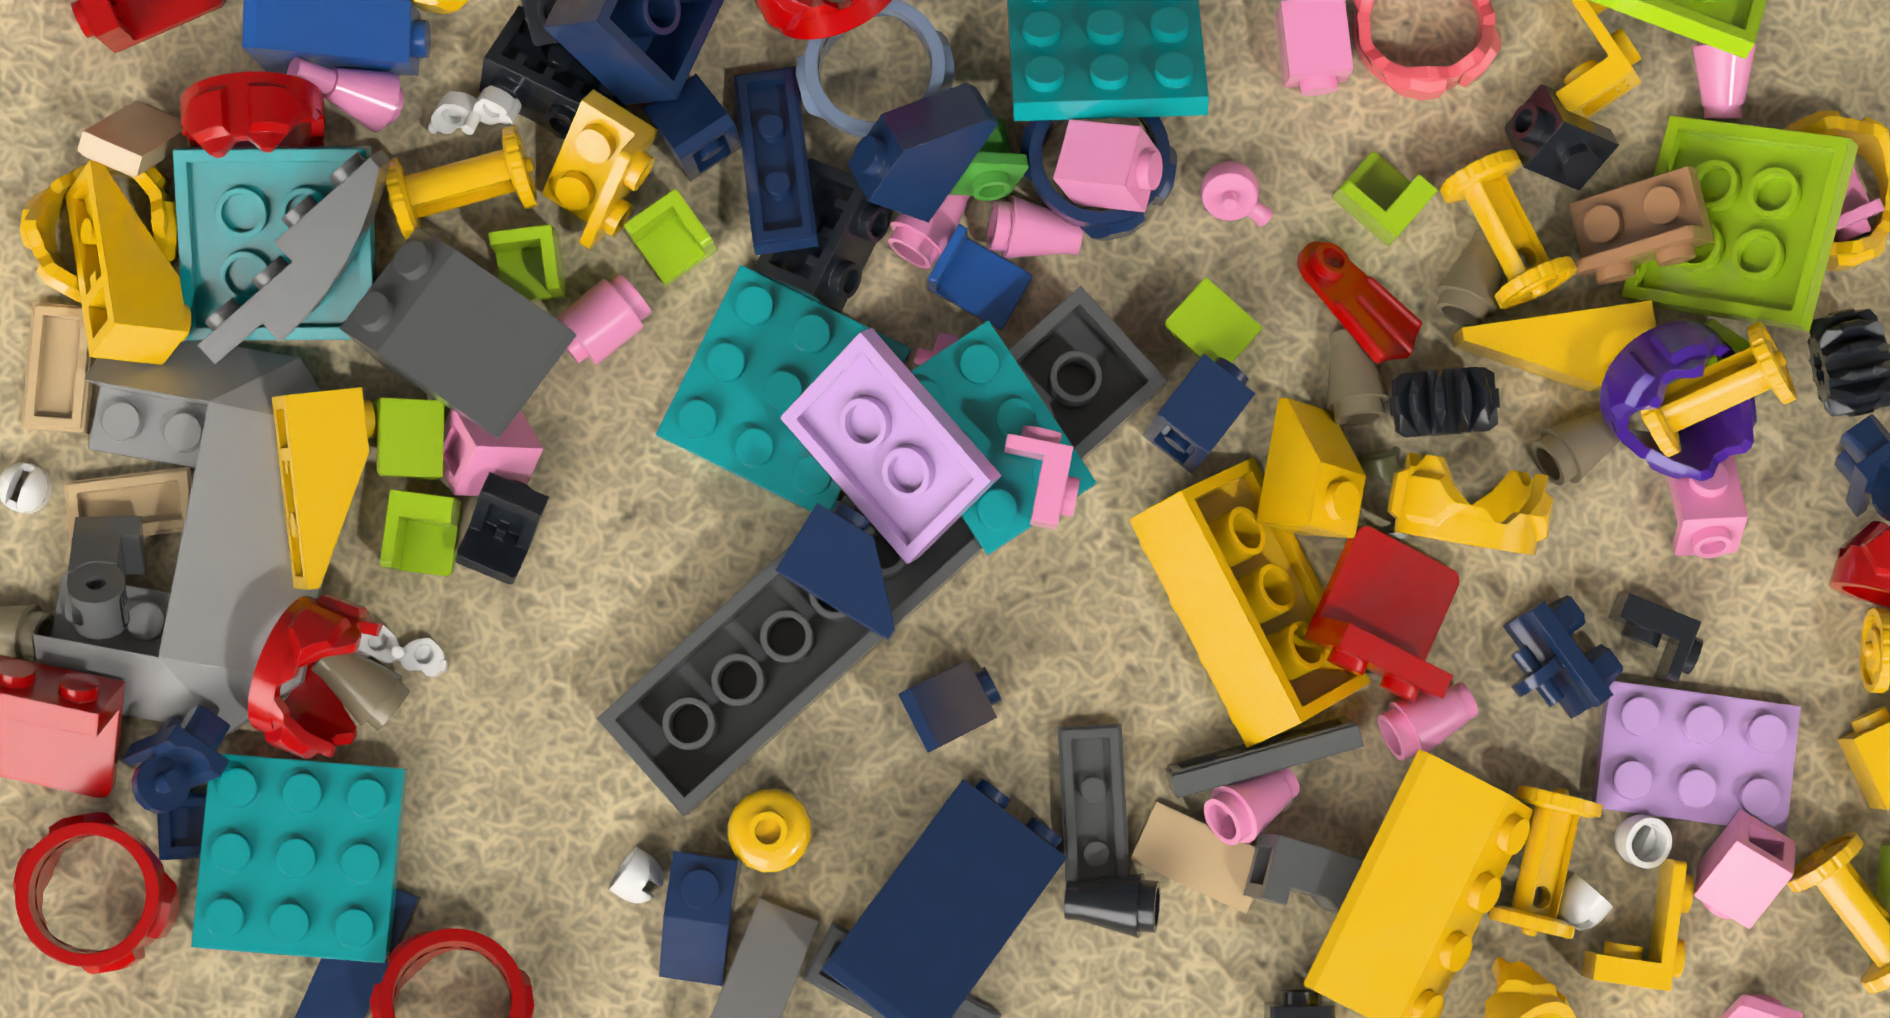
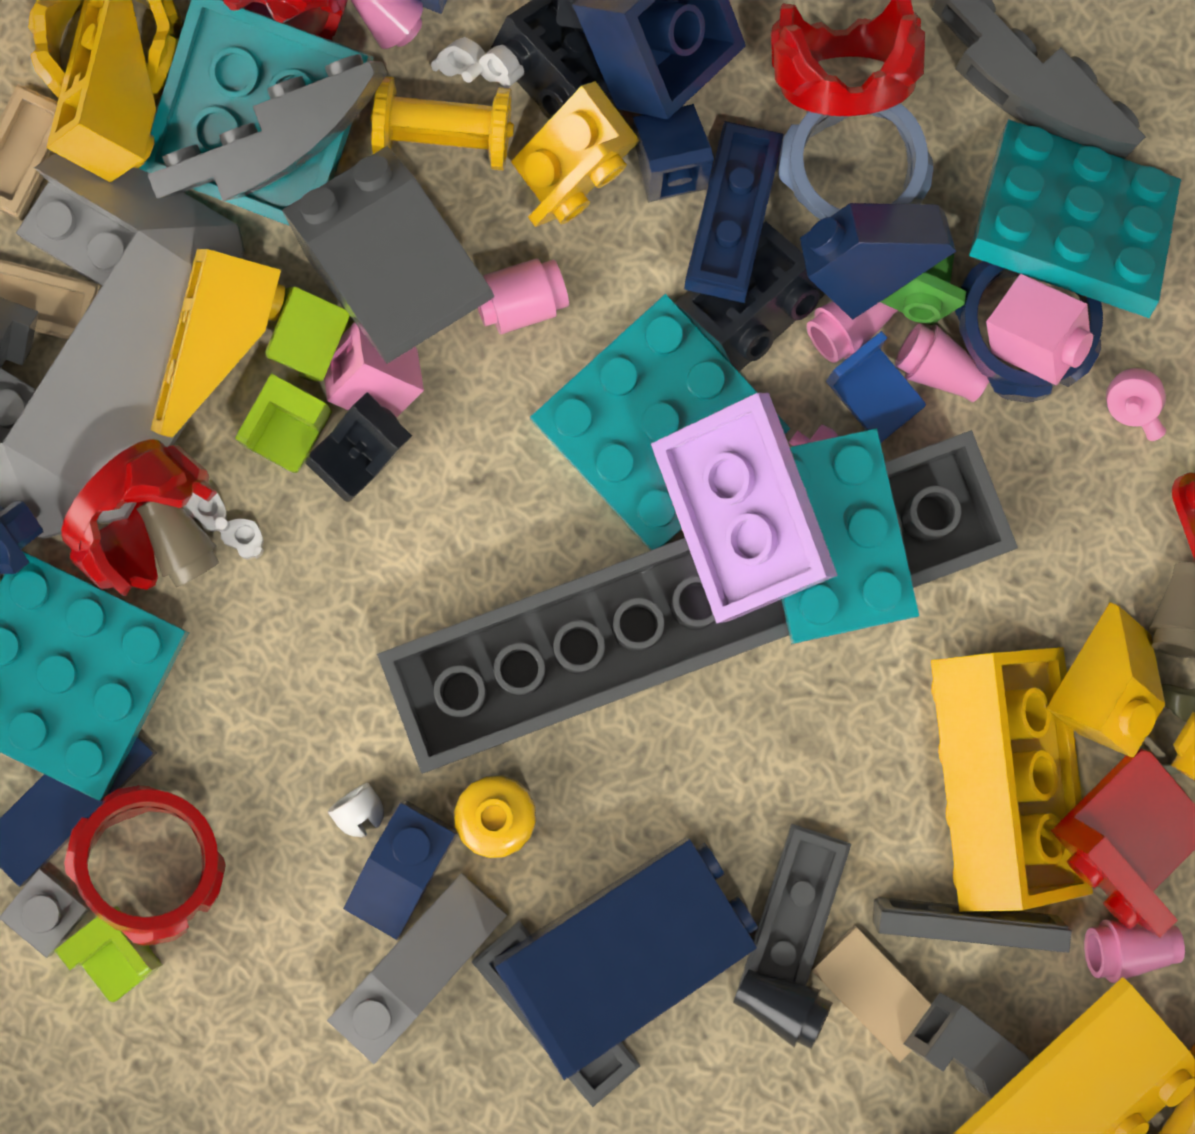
camera: 20 degrees right, 0 degrees up
(530, 261) = (478, 216): lime panel -> none
(670, 237) = (612, 244): lime panel -> none
(841, 567) = (655, 603): dark blue slope -> none
(951, 704) = (703, 767): dark blue slope -> none
(1055, 489) = (881, 608): bright pink bracket -> none
(1200, 411) = (1035, 588): dark blue slope -> none
(1212, 323) = (1074, 515): lime panel -> none
(1246, 807) = (937, 966): bright pink cone -> none

